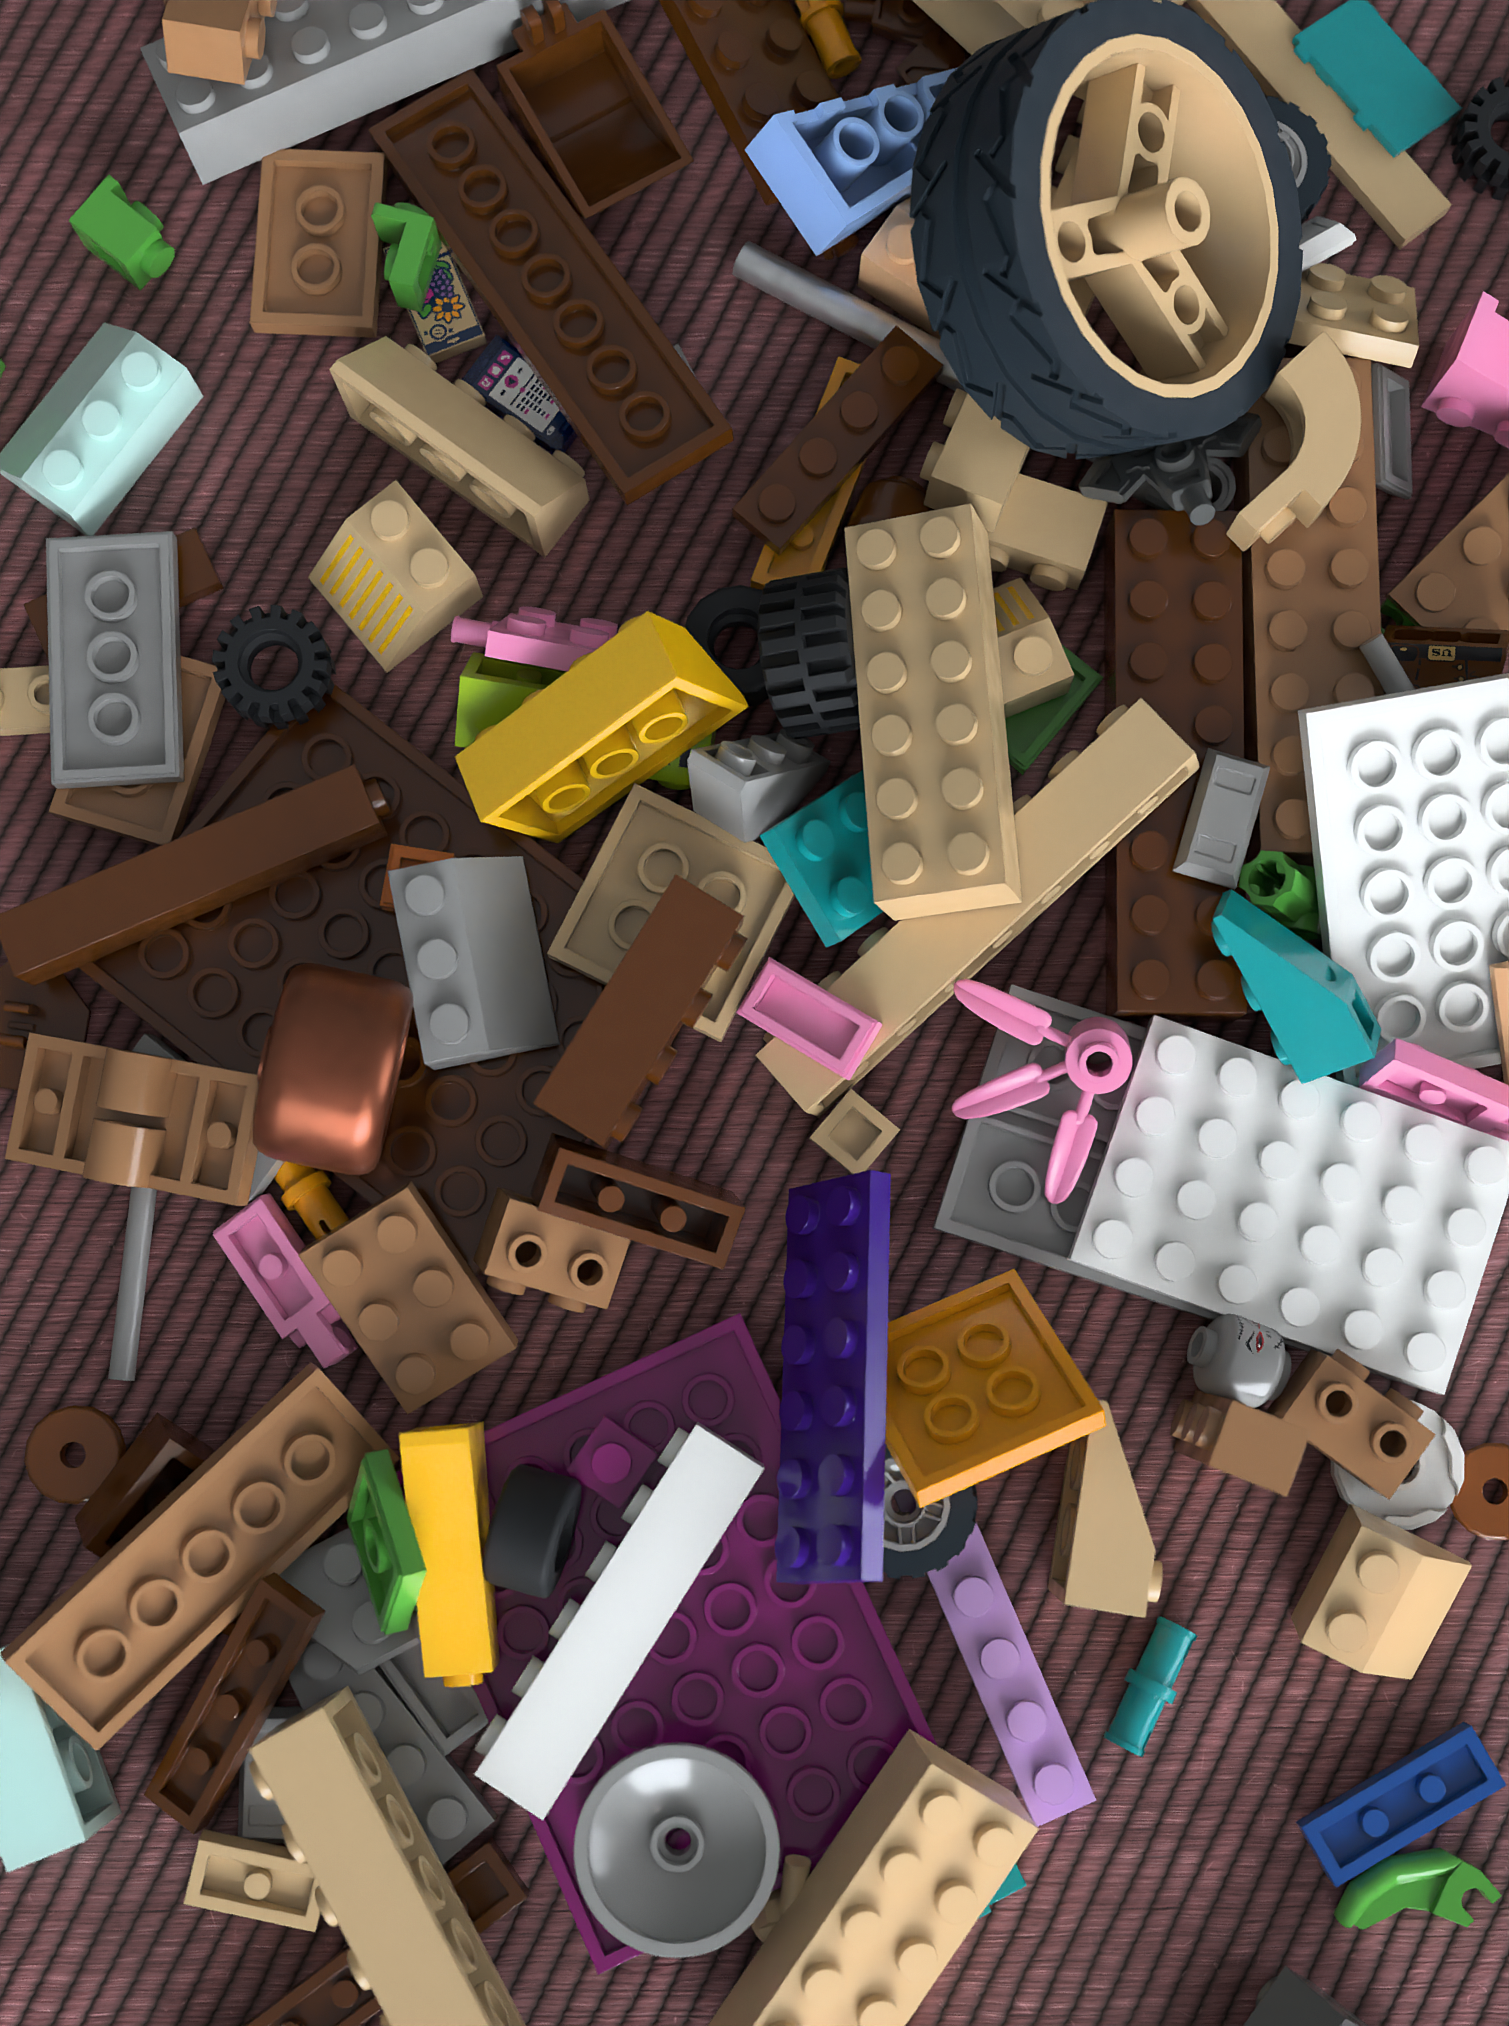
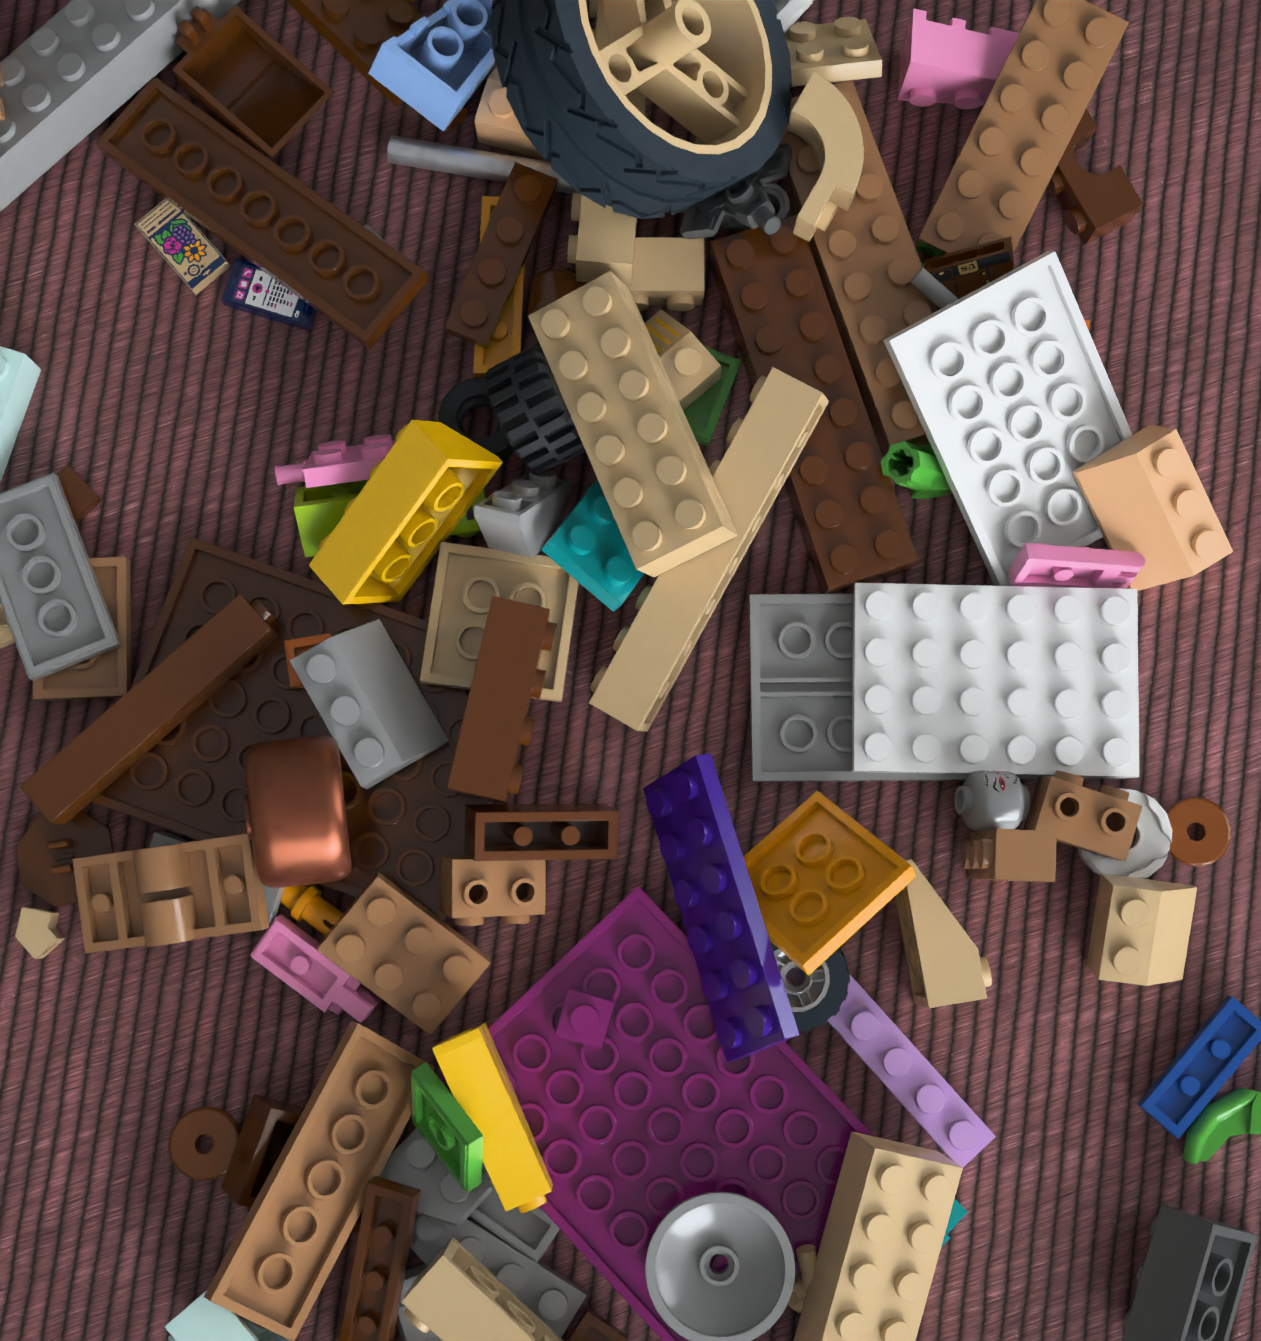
camera: 20 degrees left, 0 degrees up
(132, 1284) = (205, 1010): light grey bar -> none
(253, 636) = (135, 529): black tyre -> none
(318, 243) = (87, 234): medium nougat plate -> none
(394, 577) = (221, 453): tan slope -> none
(411, 253) = (156, 221): bright green bracket -> none
(461, 441) = (237, 342): tan slope -> none
(532, 1531) = (545, 1084): black tyre -> none
(619, 1619) = (626, 1125): white brick -> none
(809, 1018) = (618, 665): bright pink tile -> none
(854, 1133) = (675, 734): tan plate -> none
(1031, 1082) = (785, 658): bright pink plant -> none
(1150, 1686) = (1006, 1045): teal pin -> none
(1221, 818) = (855, 431): light grey tile -> none
(1307, 998) = (954, 535): teal slope -> none
(1391, 432) = (883, 124): light grey tile -> none

